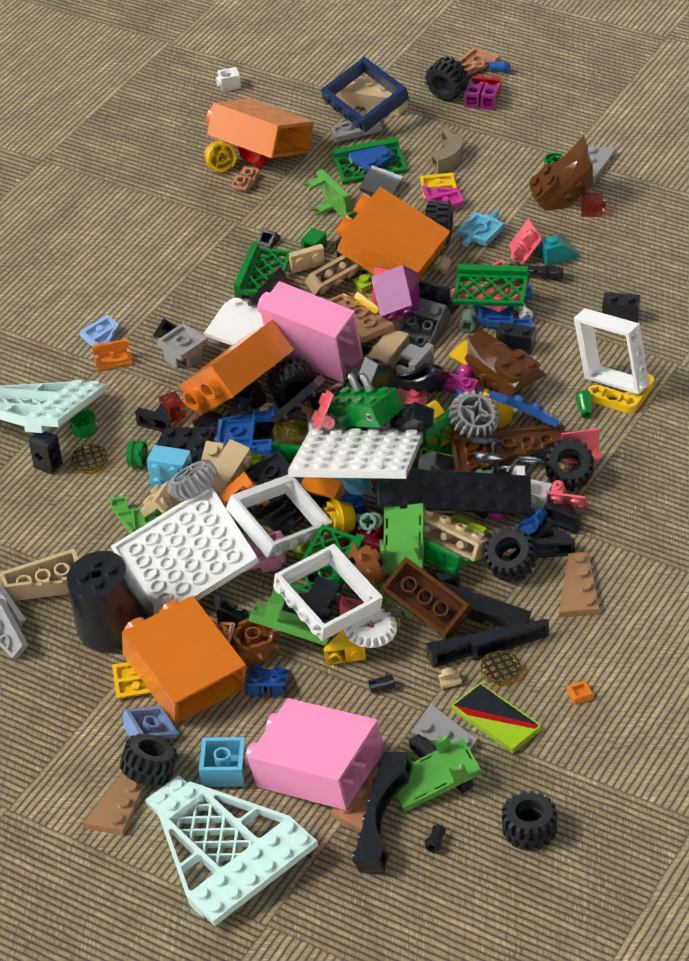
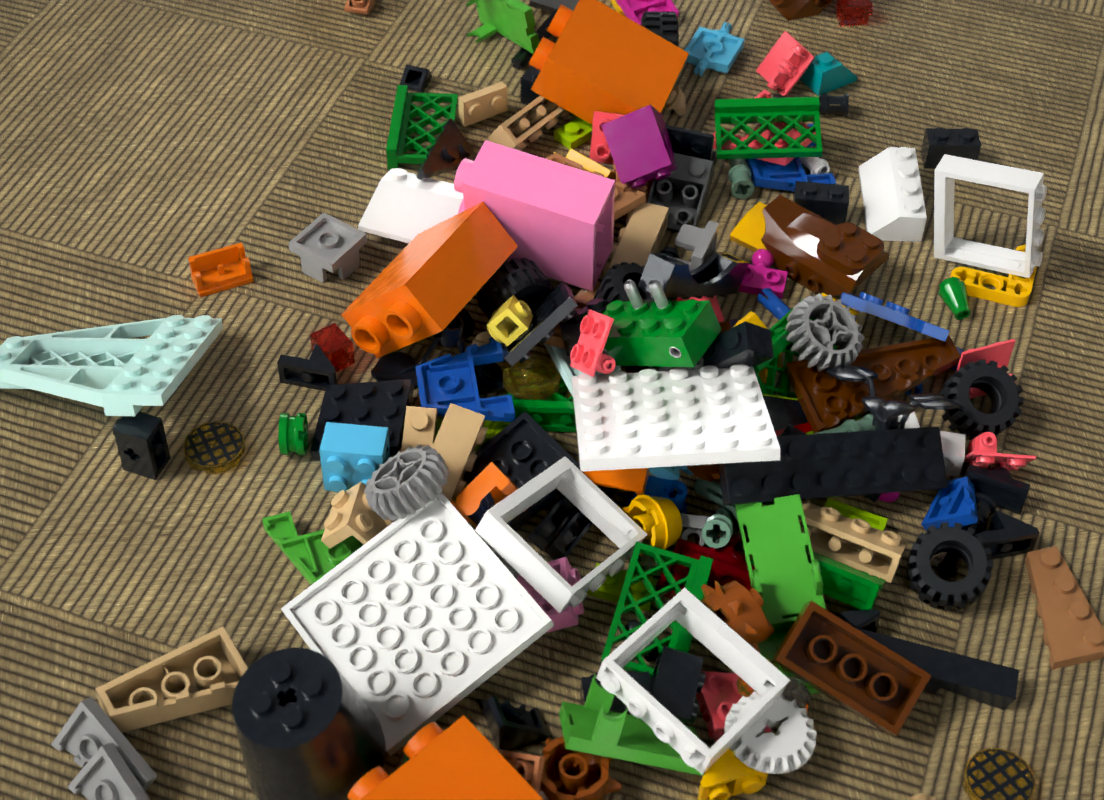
camera: 15 degrees left, 5 degrees up
(84, 424) = (197, 389): green wheel -> none
(100, 331) = (195, 233): light blue wing -> none
(164, 328) = (292, 223): black slope -> none
(281, 395) = (509, 321): none -> light yellow brick
(314, 237) = (484, 75): green brick -> none
(483, 643) = (956, 738): black slope -> none
(563, 341) = (893, 195): none -> white slope

